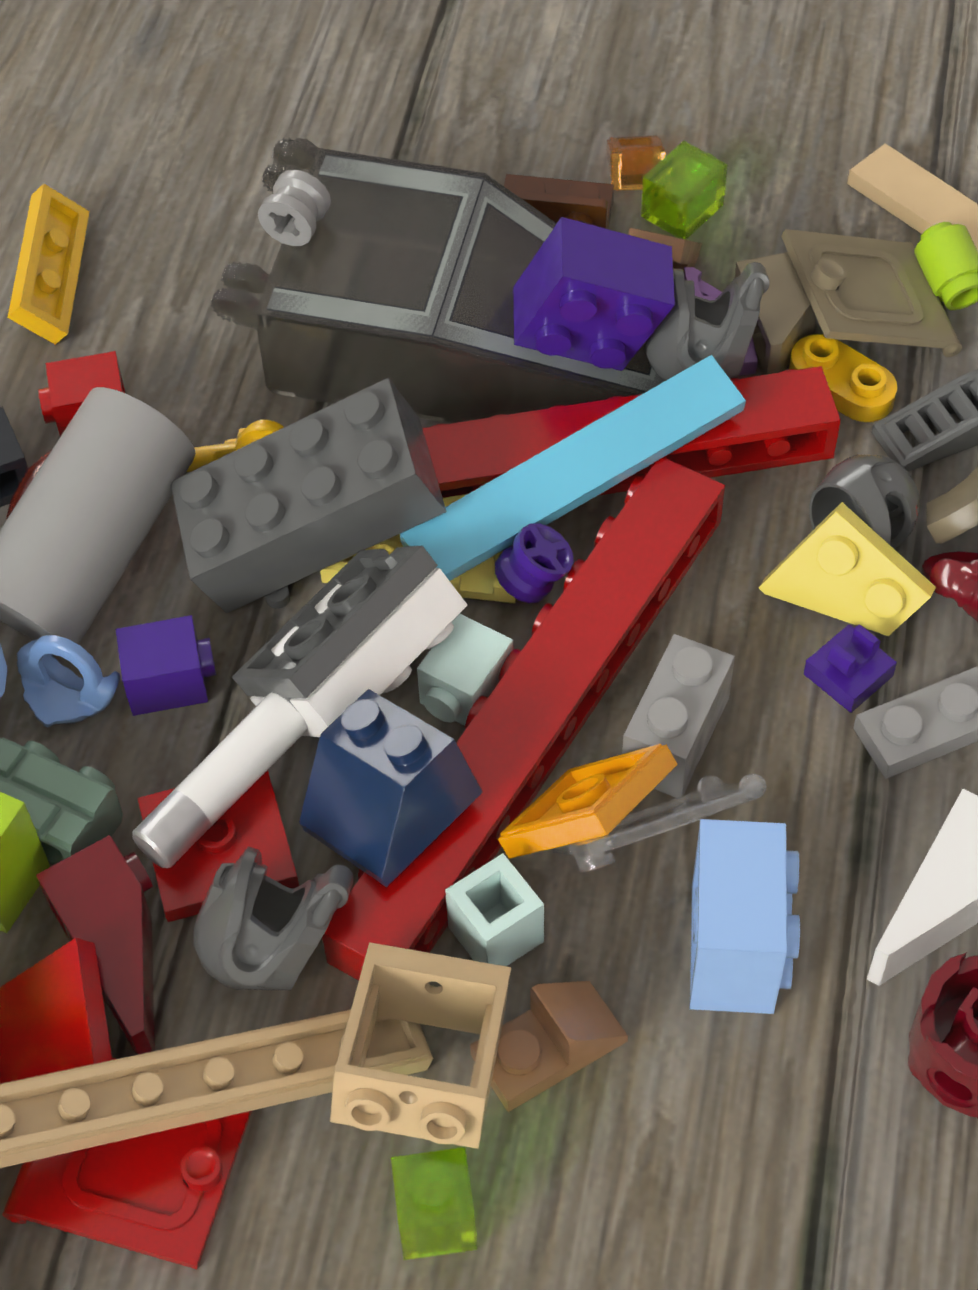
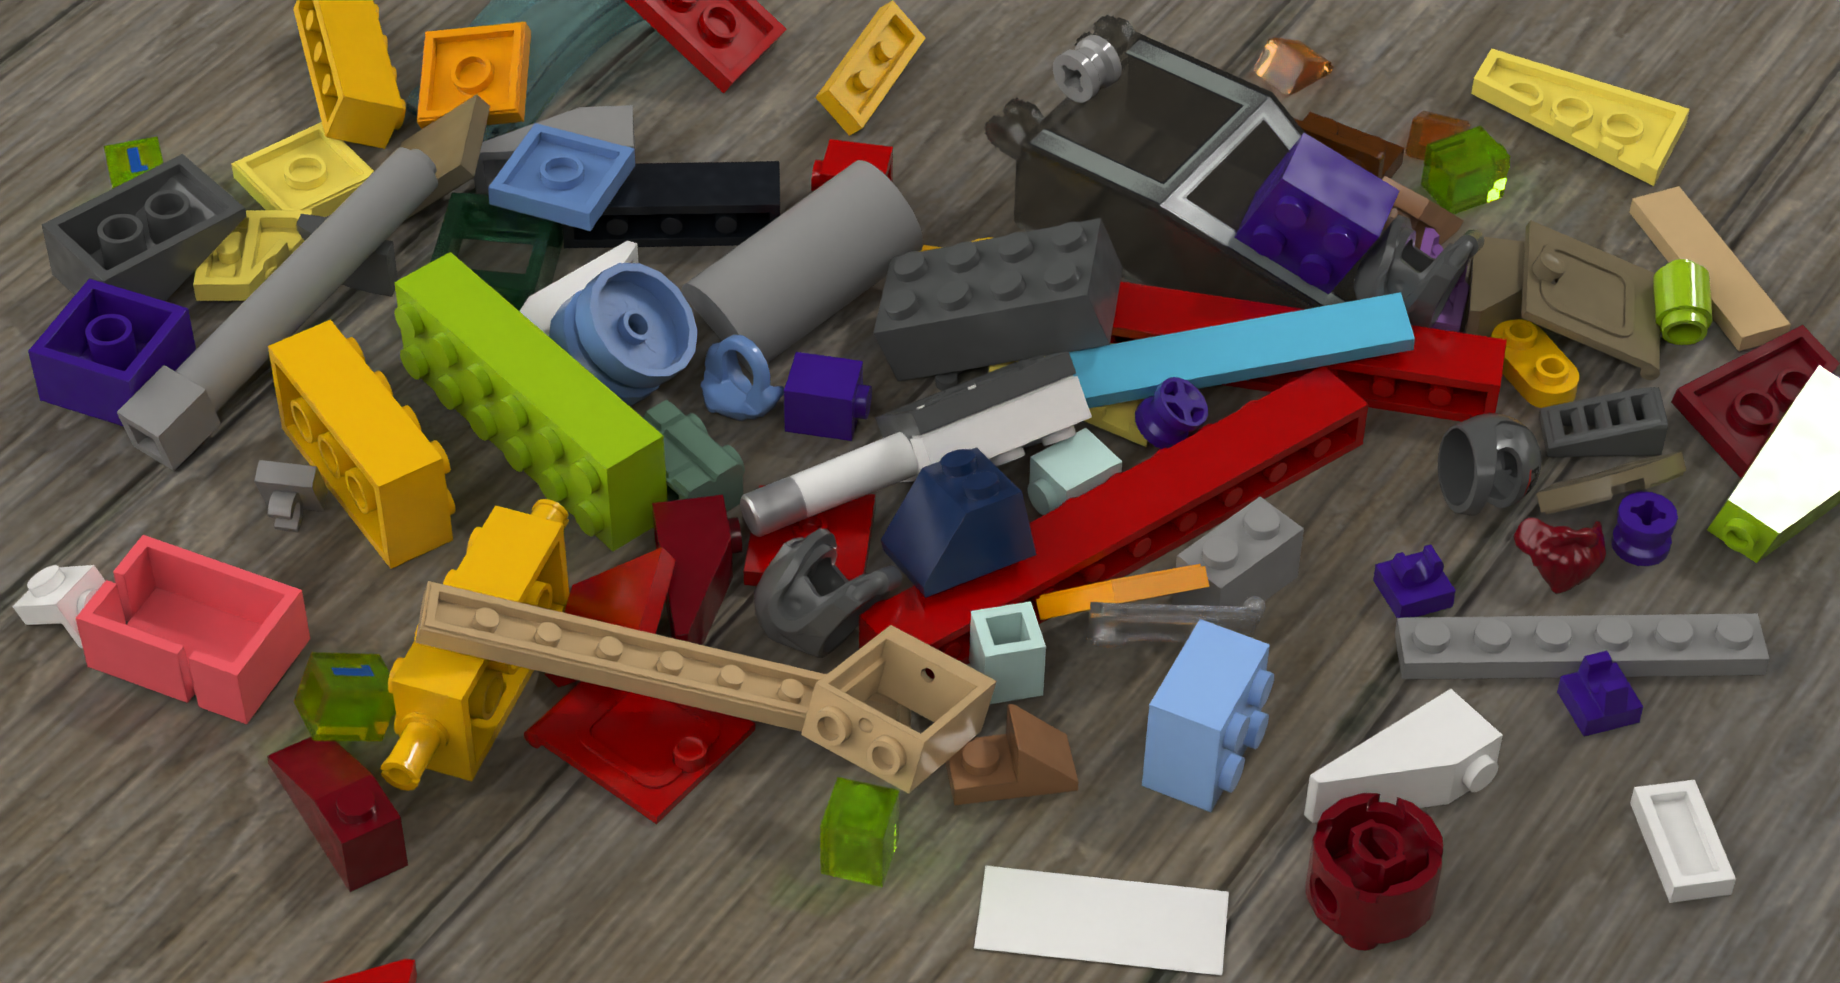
camera: 20 degrees right, 10 degrees down
(462, 129) = (1291, 65): none -> clear orange slope
(724, 1197) = (1102, 920): none -> white sticker
(774, 95) = (1599, 118): none -> light yellow wing
(850, 575) = (1446, 506): light yellow wing -> none

